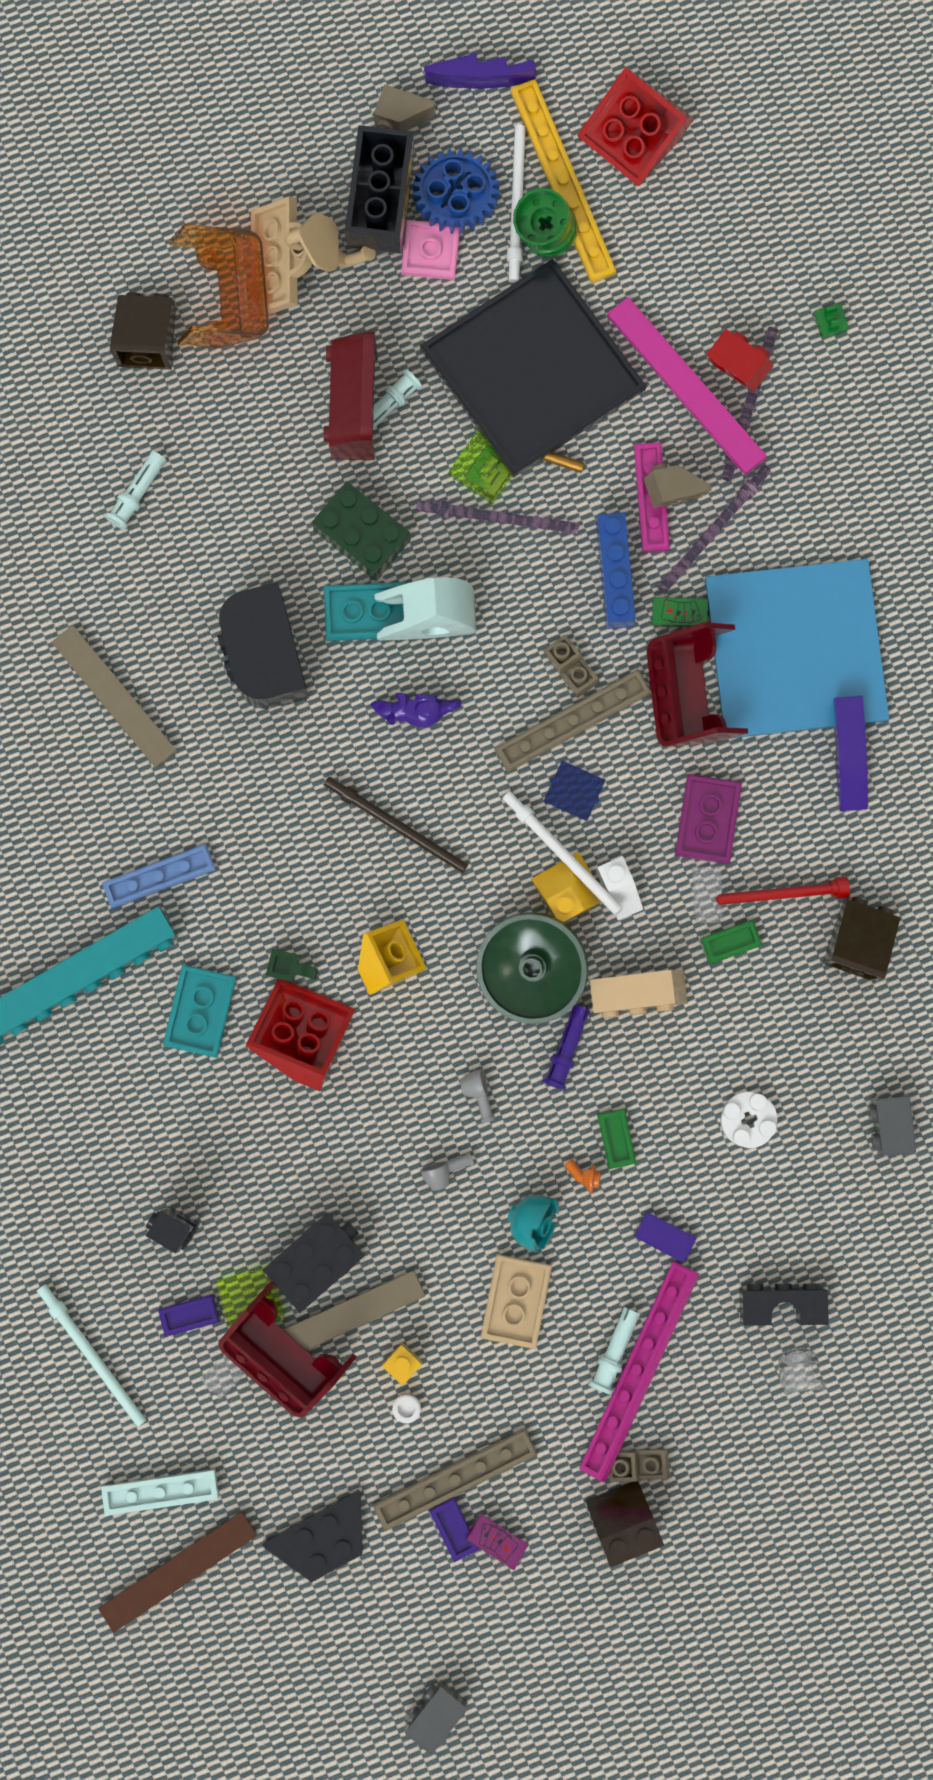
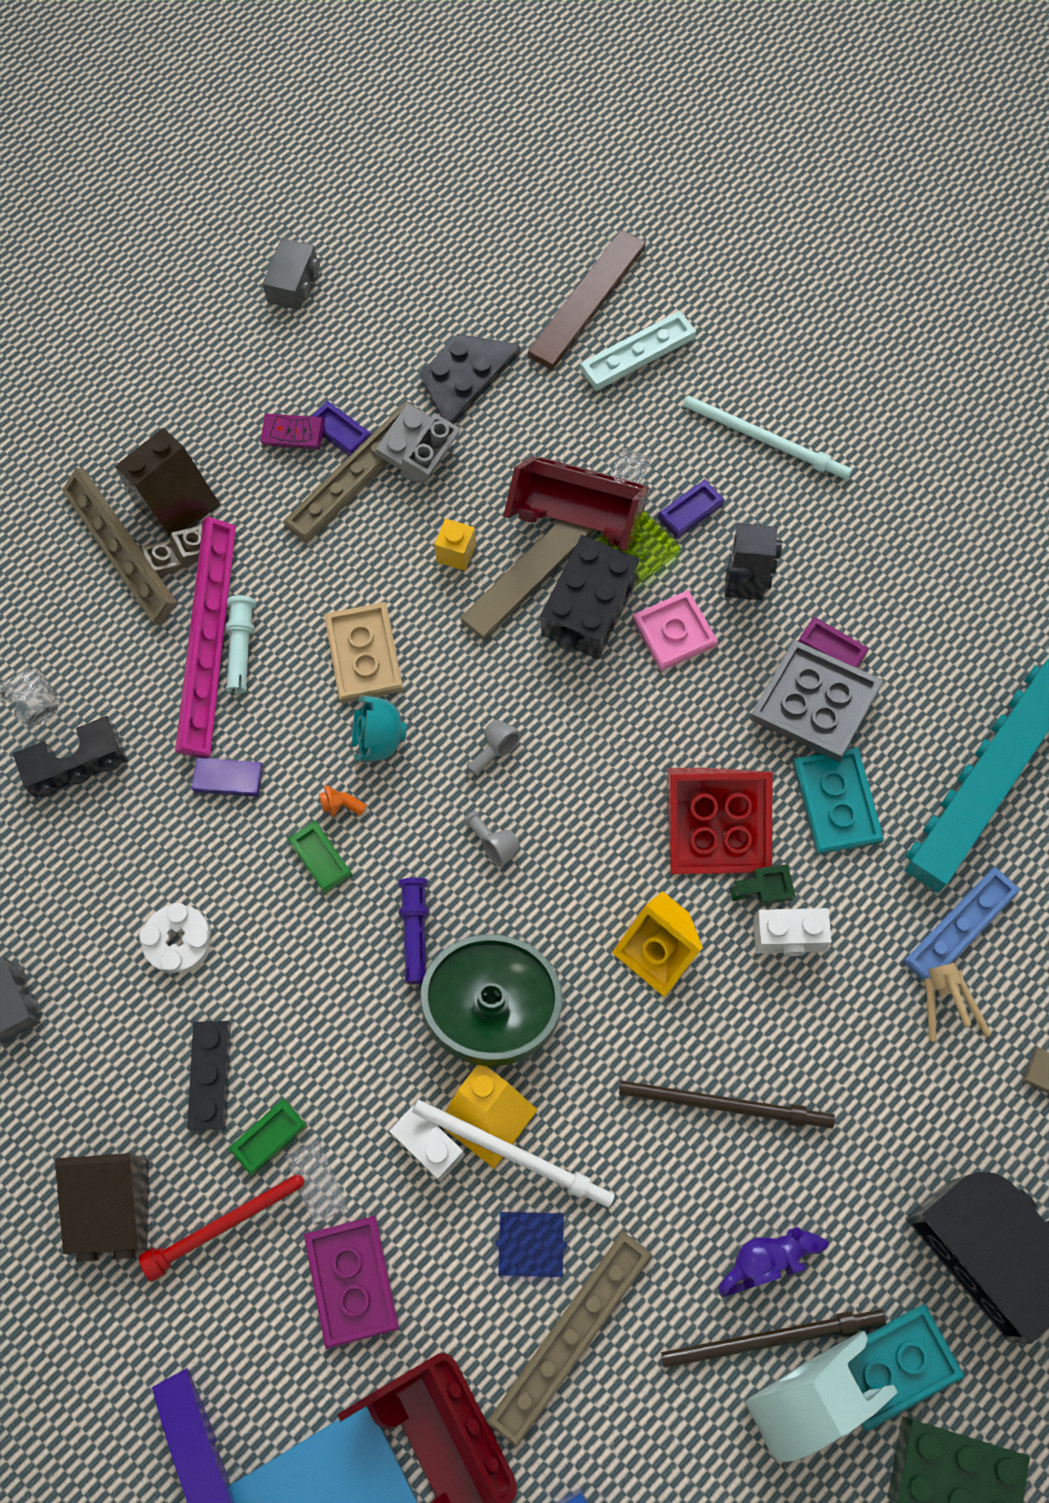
camera: 160 degrees right, 15 degrees down
(136, 1139) = (833, 643): none -> magenta tile
(175, 1096) = (816, 700): none -> plate
(196, 839) = (949, 980): none -> tan plant
(255, 1209) = (674, 630): none -> bright pink tile
(288, 923) = (792, 931): none -> white brick
(386, 650) = (844, 1324): none -> dark brown bar
(394, 1477) = (417, 443): none -> light grey brick
(406, 1408) = (433, 512): white tile -> none
(571, 666) = (604, 1411): dark tan slope -> none
(638, 992) = (354, 1023): tan wedge -> none
(685, 1491) = (119, 546): none -> dark tan tile
(758, 1004) = (209, 1076): none -> black plate

